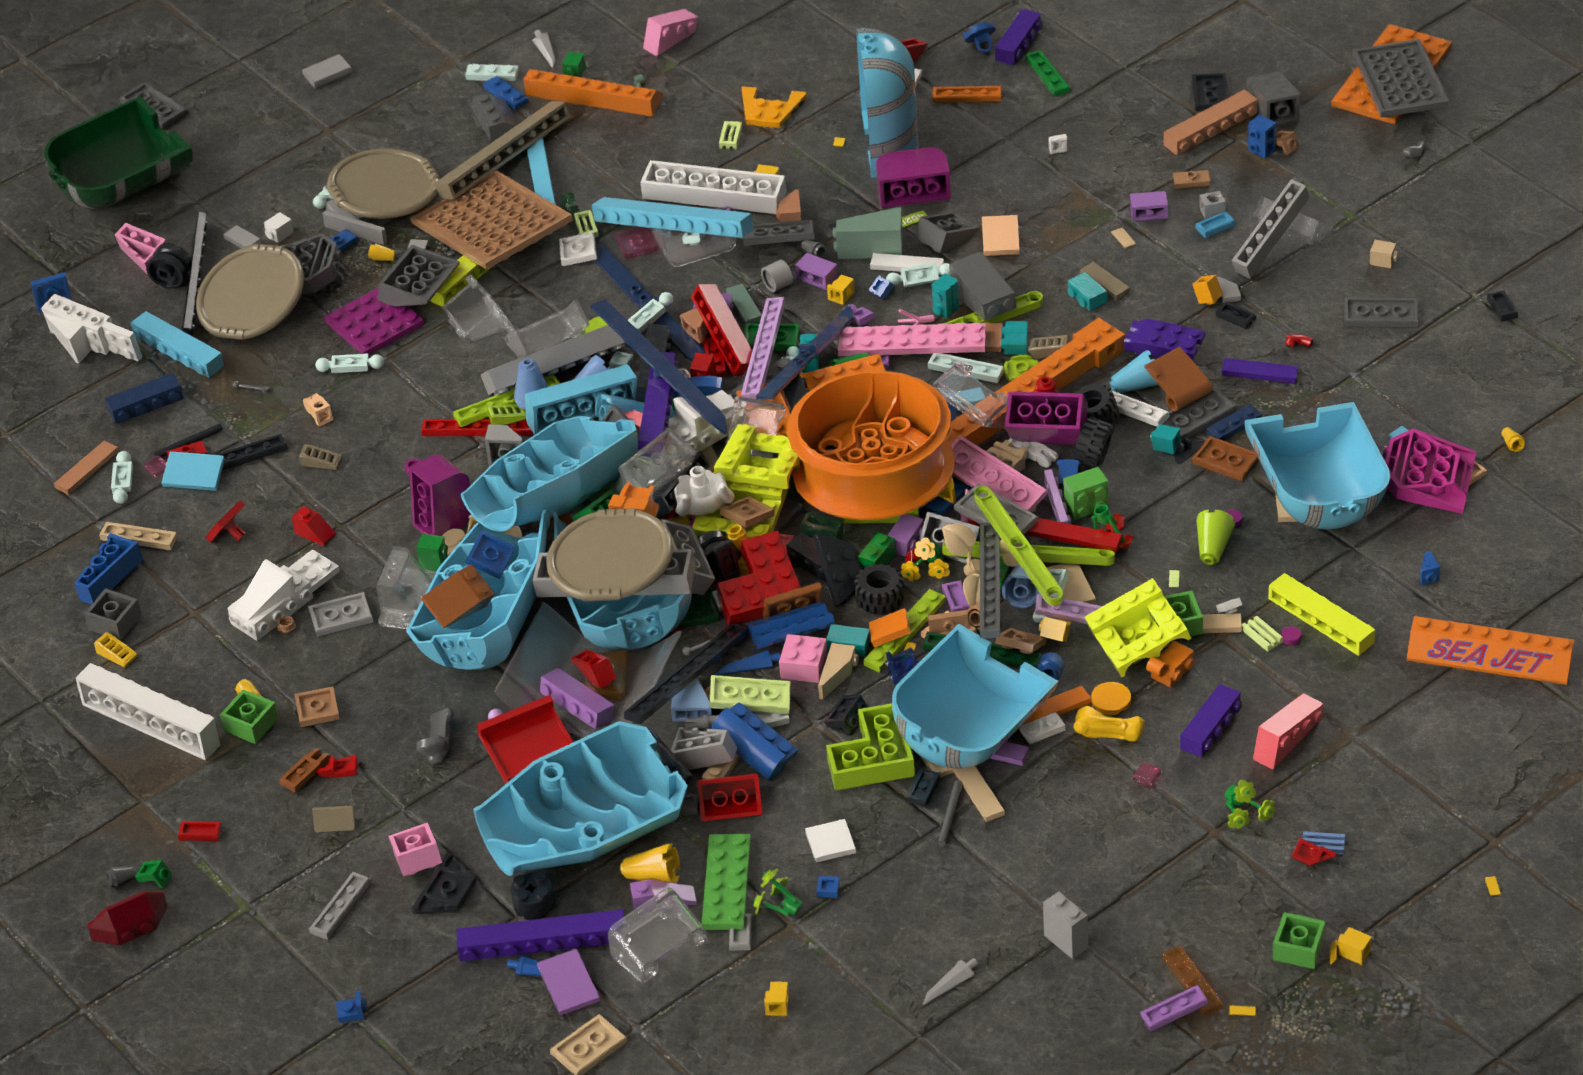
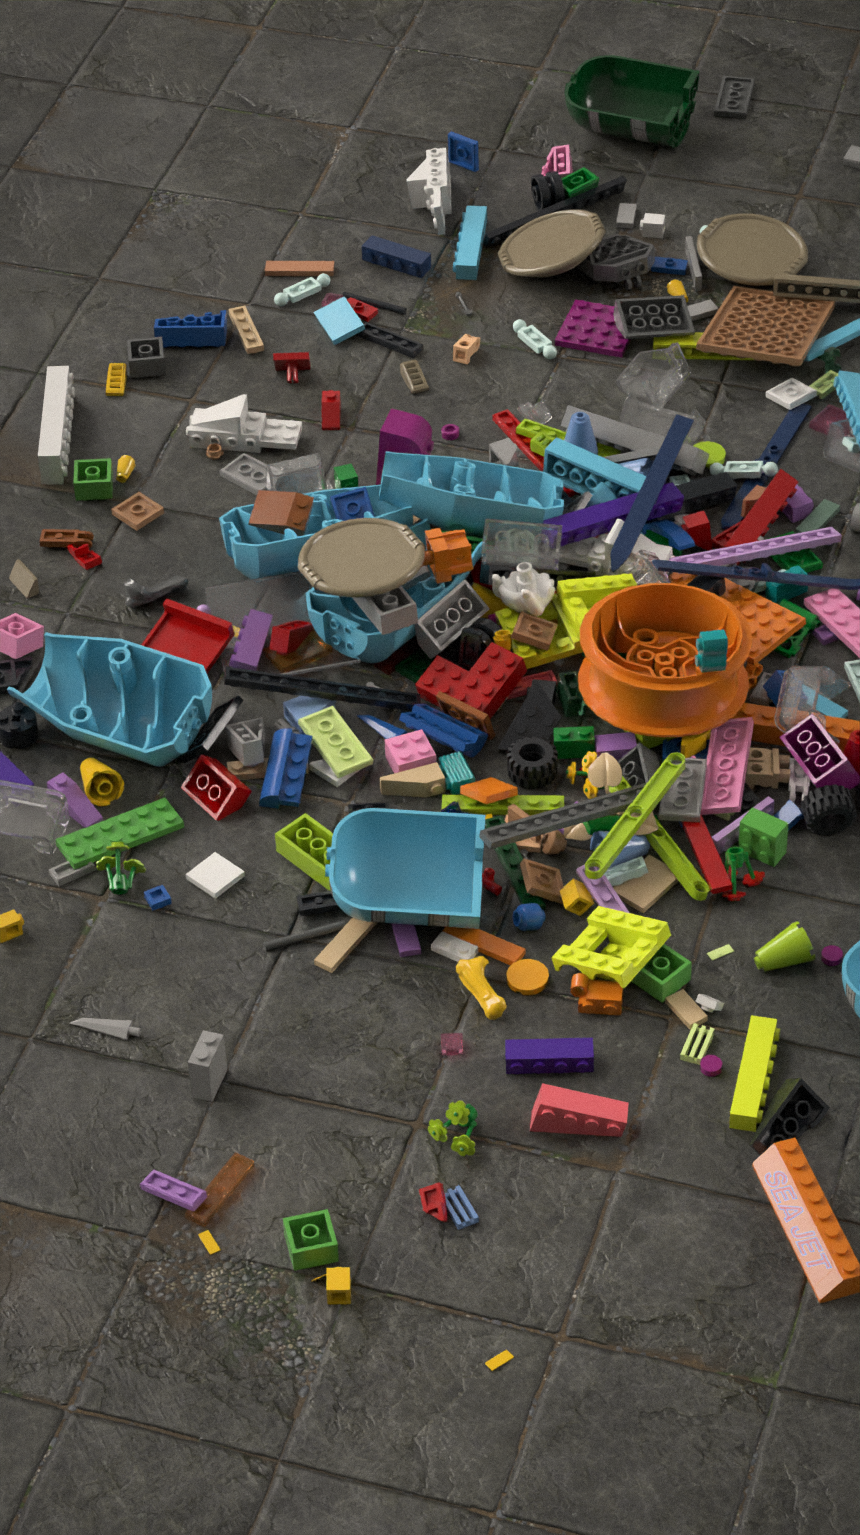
camera: 55 degrees right, 0 degrees up
(186, 237) = (579, 182): none -> green slope
(452, 401) = (537, 413): none -> clear piece
(585, 359) = (650, 452): none -> light grey tile
(935, 395) = (712, 651): none -> teal brick
(1378, 609) = (789, 1115): none -> black wedge

